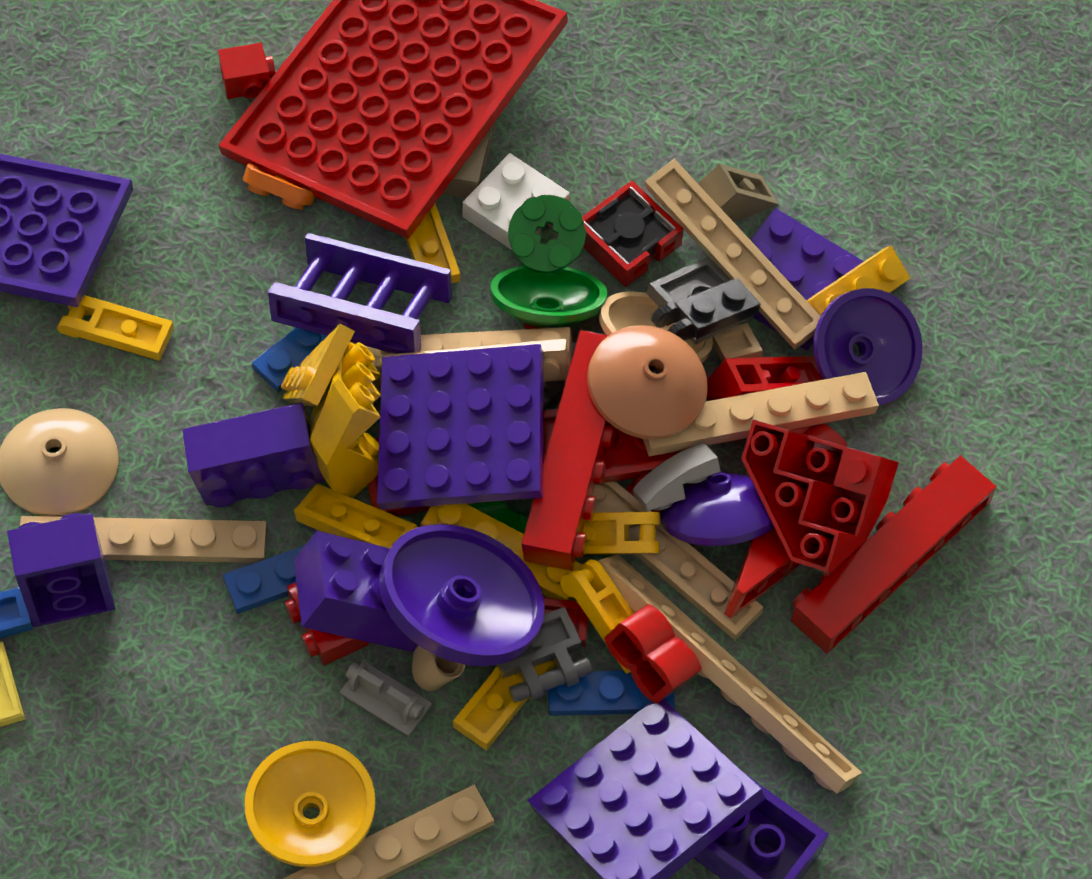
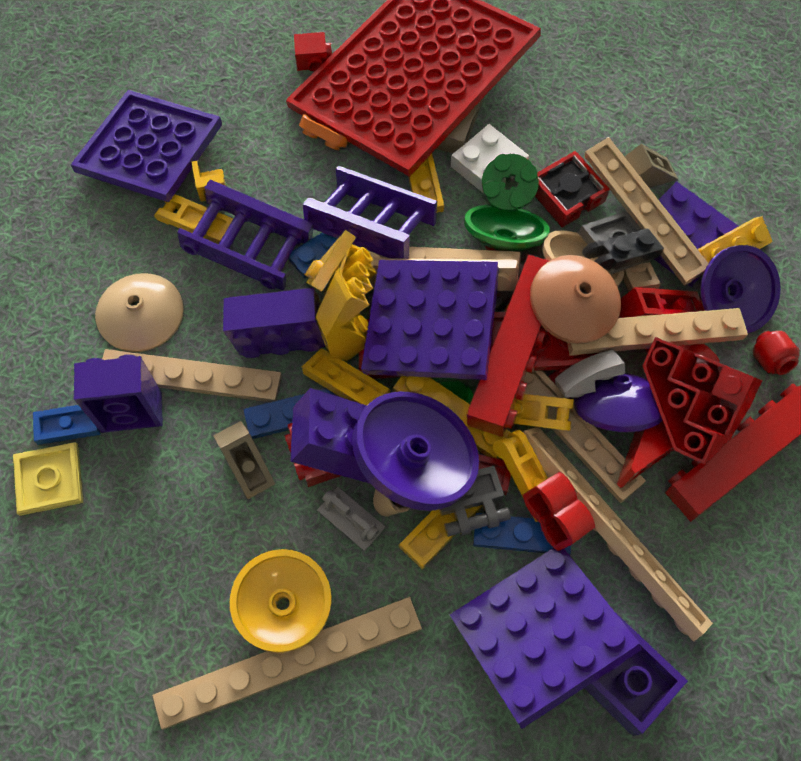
camera: 10 degrees right, 5 degrees up
(128, 274) = (202, 179): none -> yellow panel
(197, 307) = (257, 212): none -> dark purple fence
(234, 638) = (244, 459): none -> dark tan slope
(921, 425) = (776, 352): none -> red head

